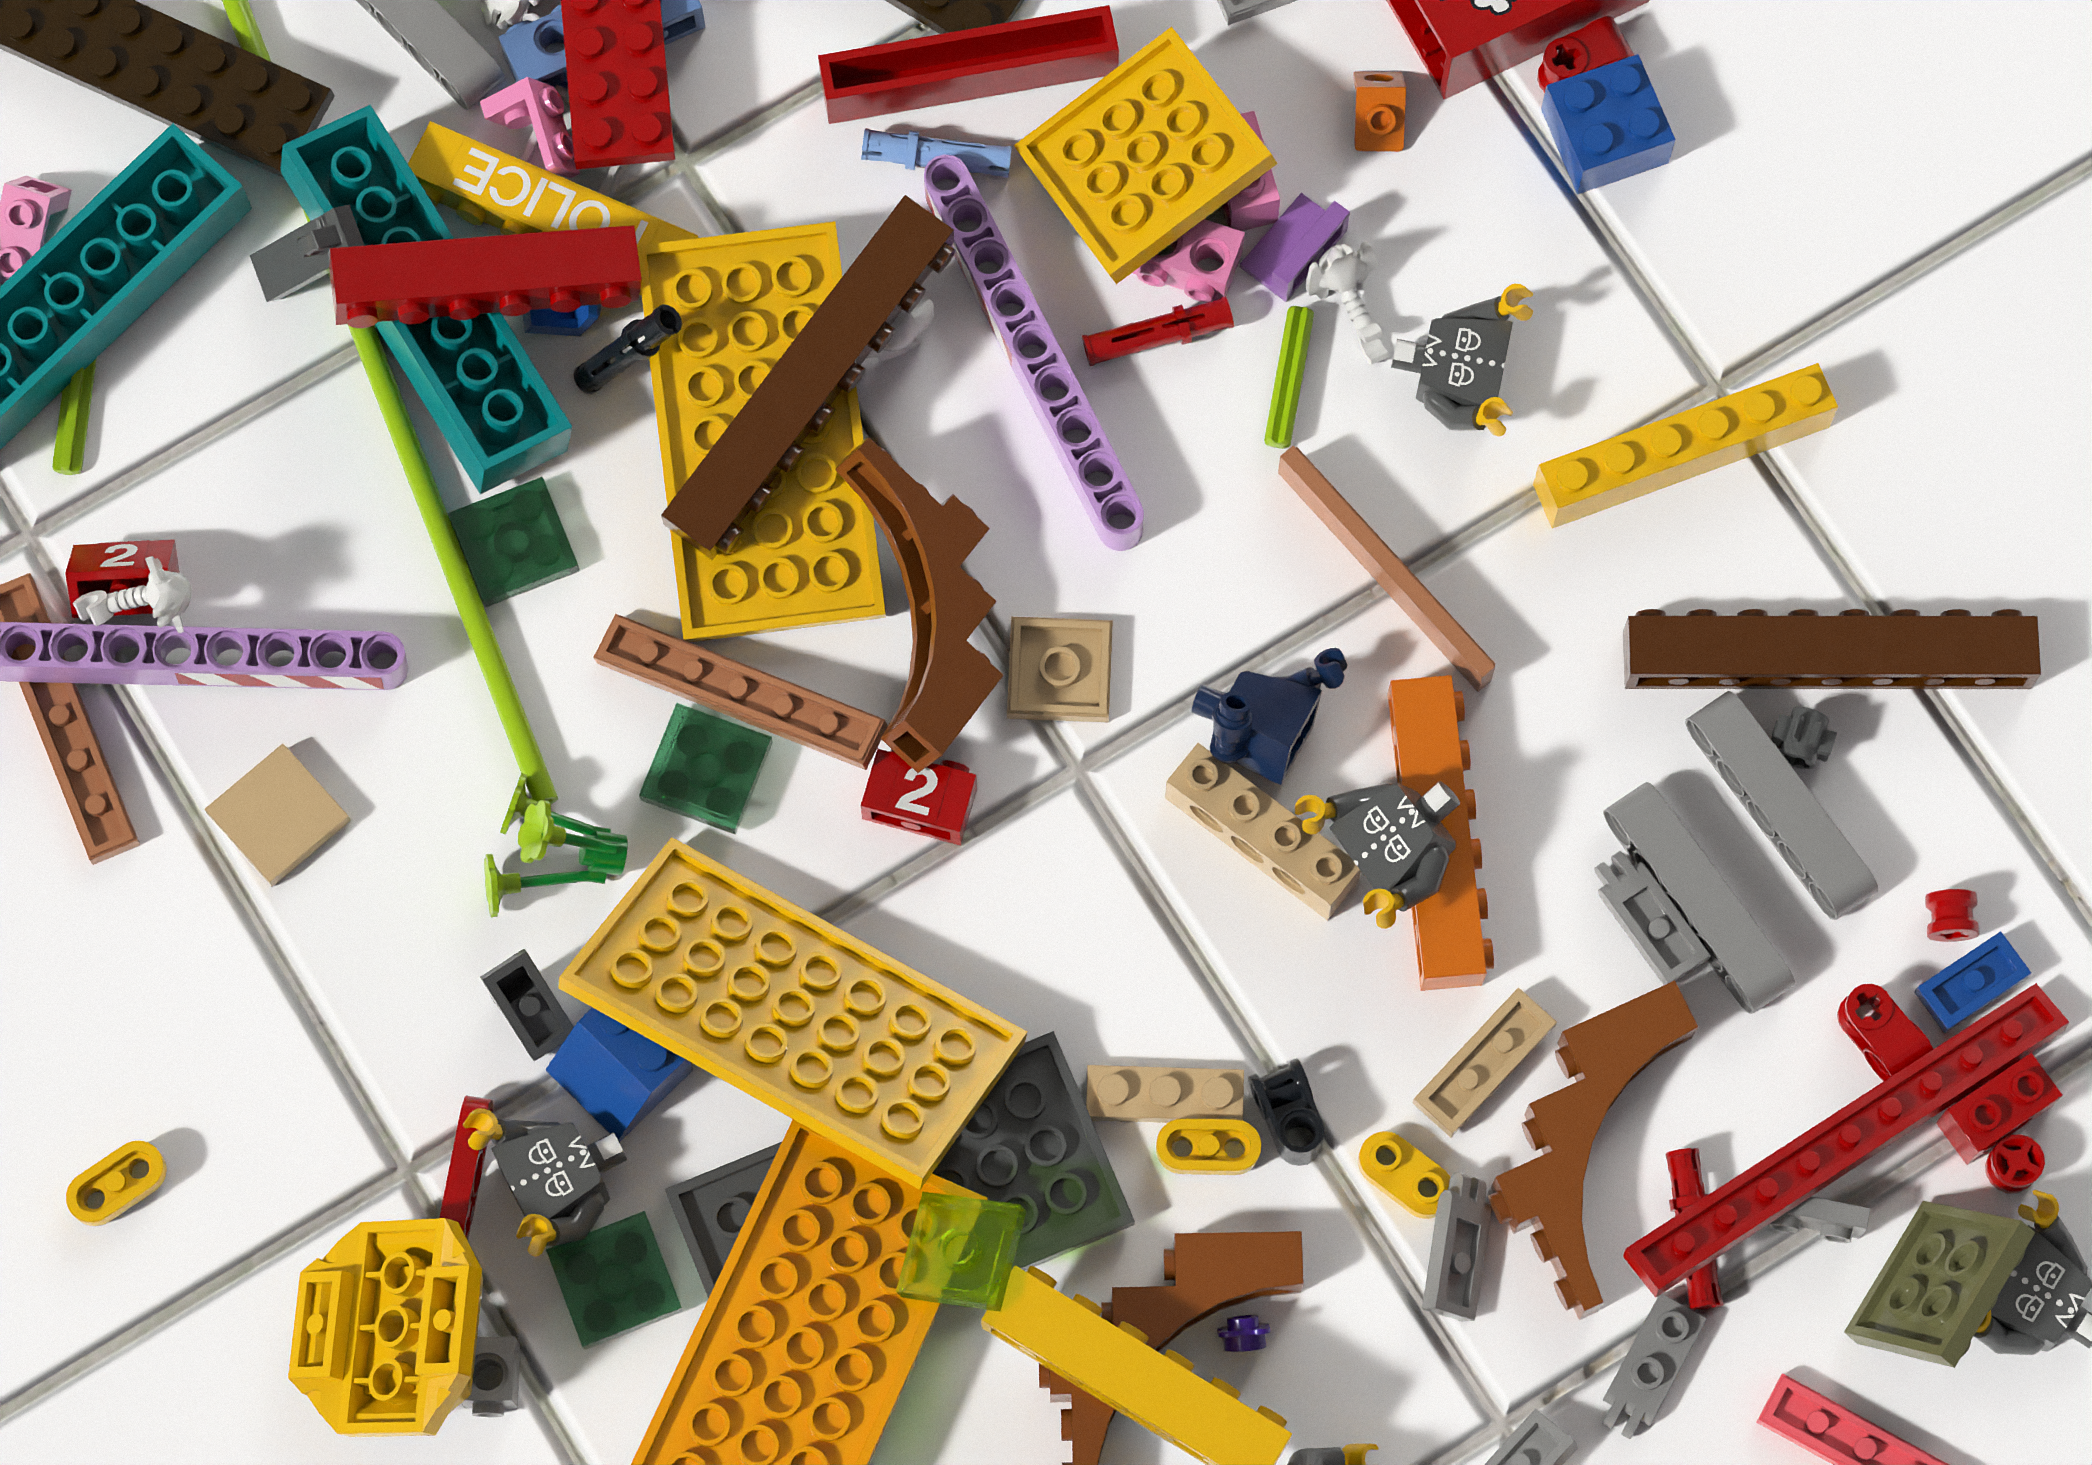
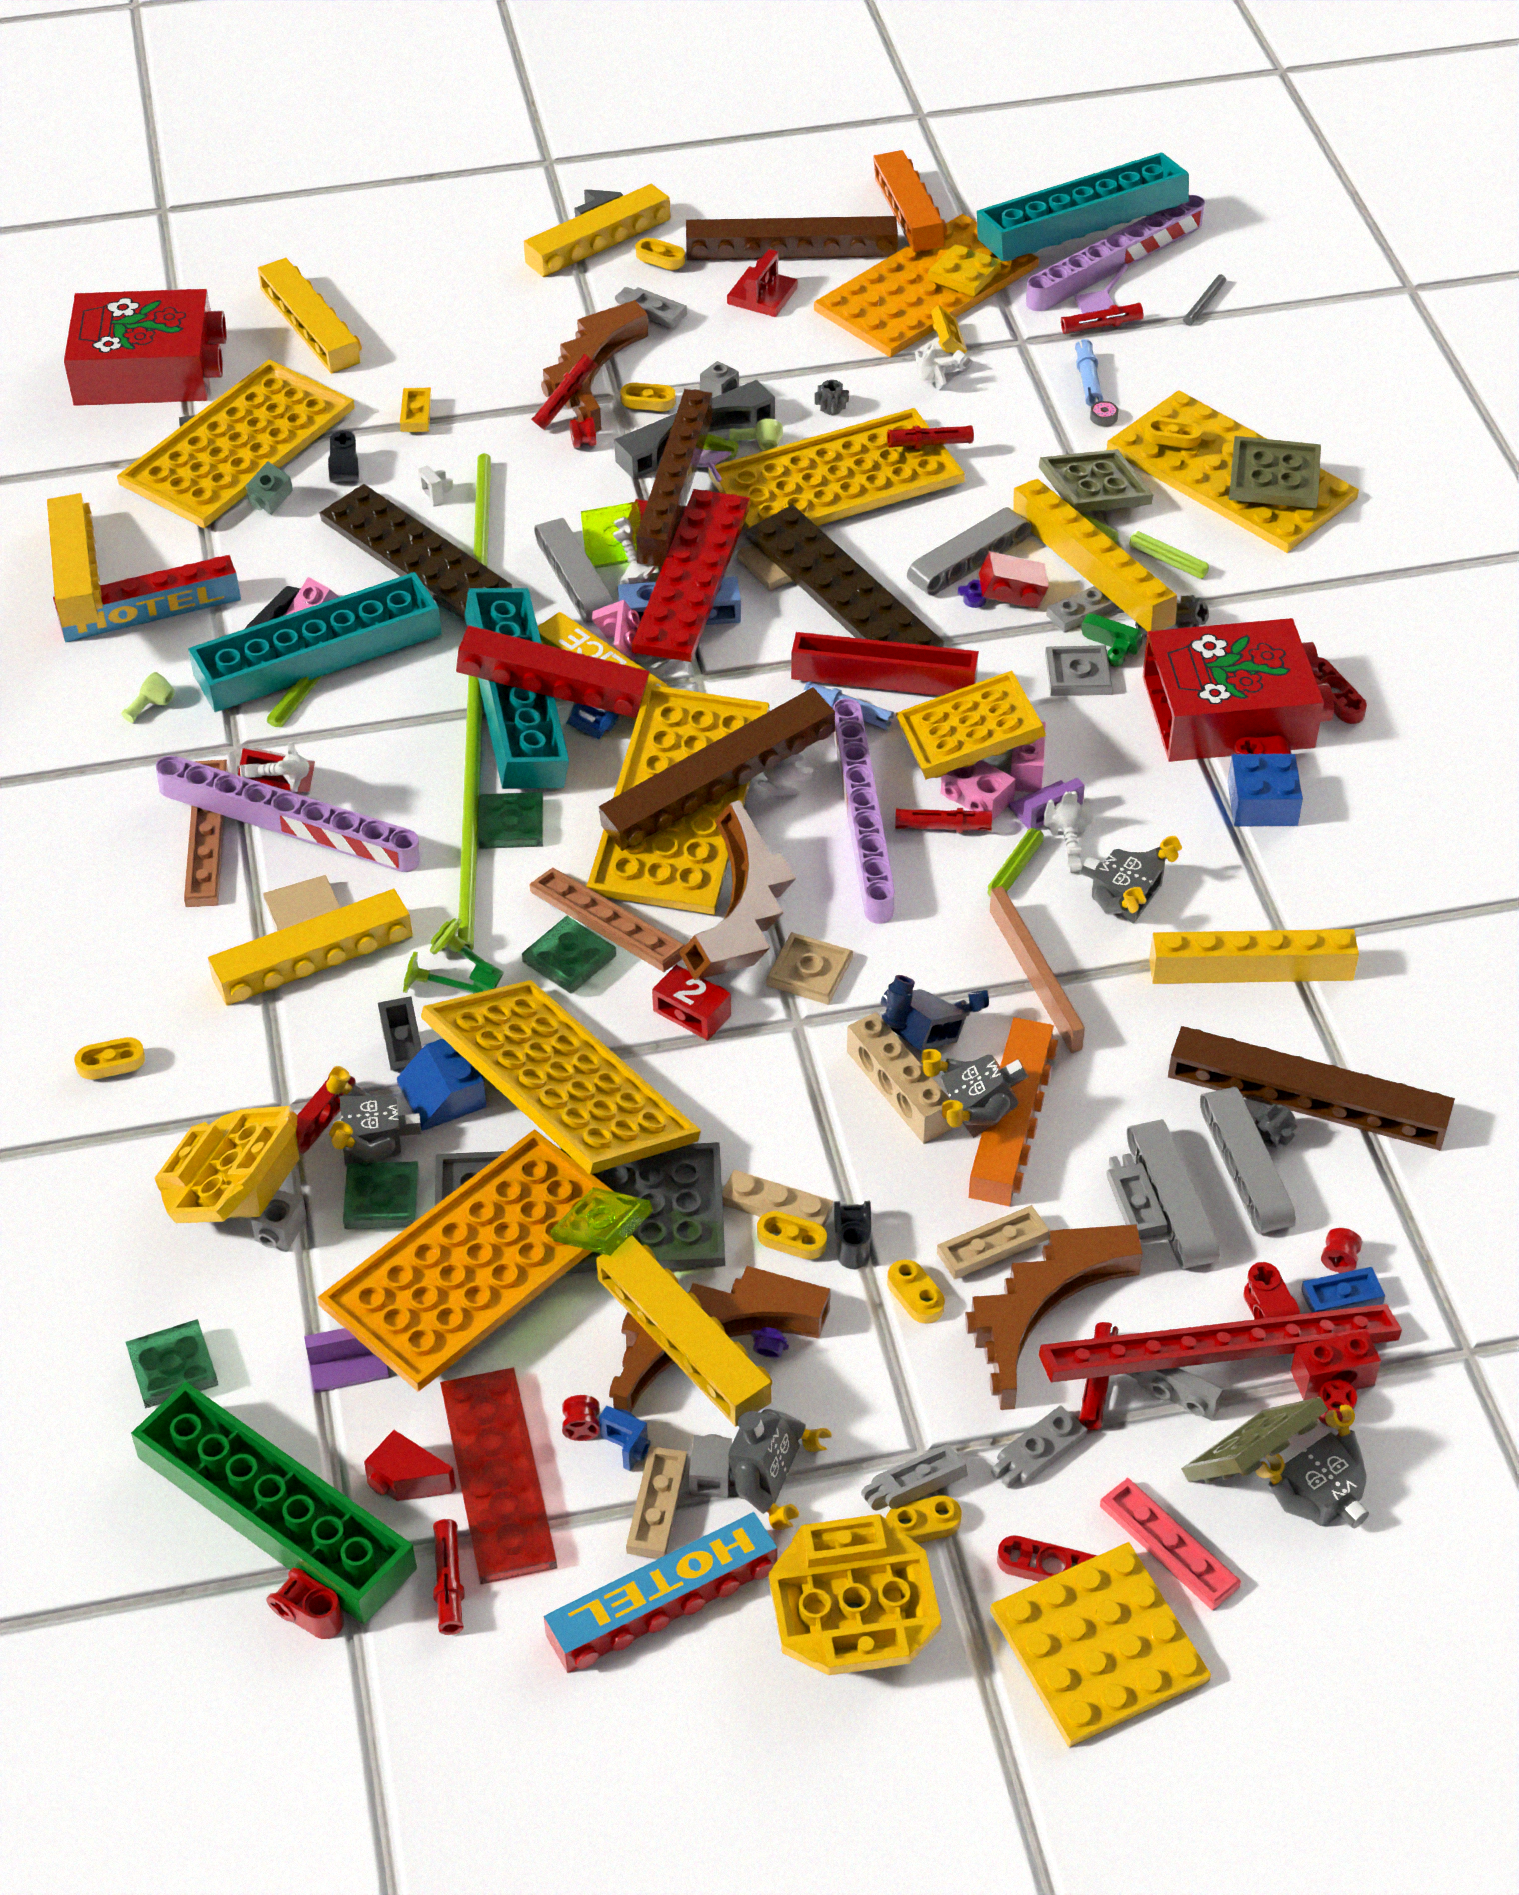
camera: 20 degrees right, 25 degrees down
(304, 253) = (444, 654): dark grey hinge -> none
(323, 887) = (310, 946): none -> yellow brick
(655, 327) = (626, 727): black pin -> none
(1379, 111) = (1124, 753): orange bracket -> none
(1458, 1249) = (931, 1339): light grey hinge -> none

